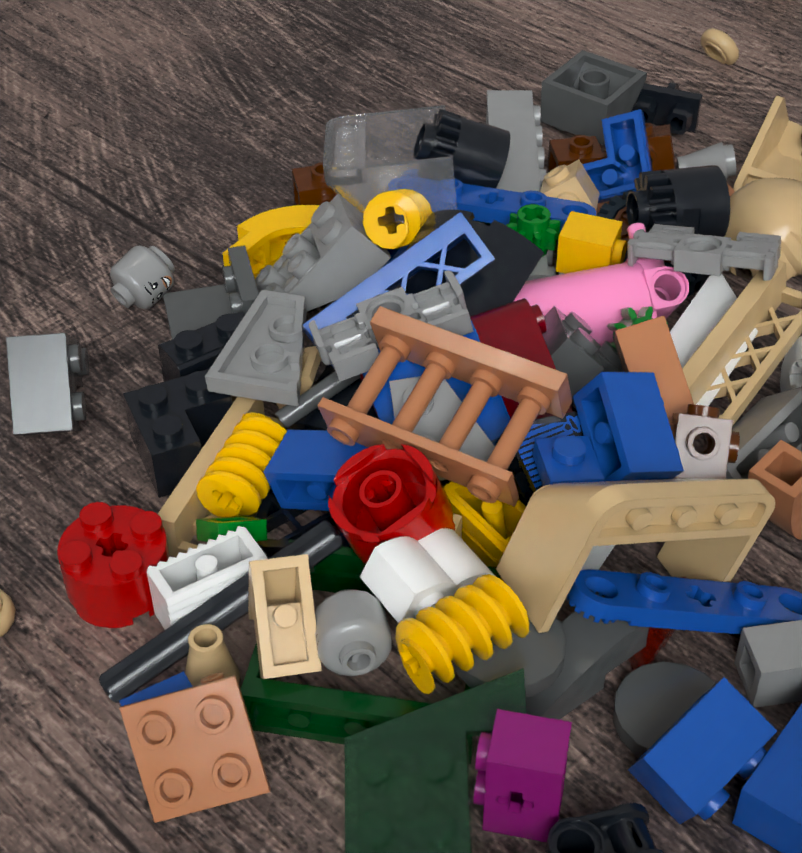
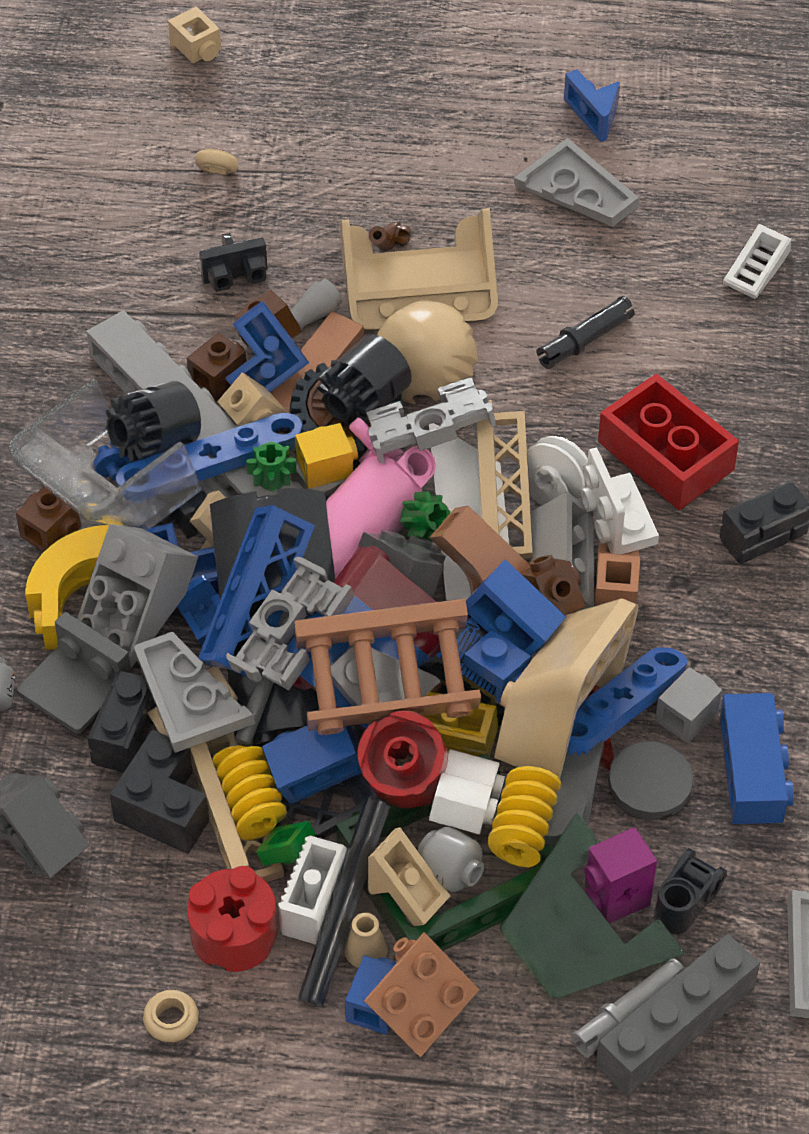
camera: 40 degrees left, 10 degrees up
(380, 221) = (178, 520): yellow piece -> none
(589, 91) = (173, 286): dark grey slope -> none
(703, 753) = (696, 793): blue brick -> none

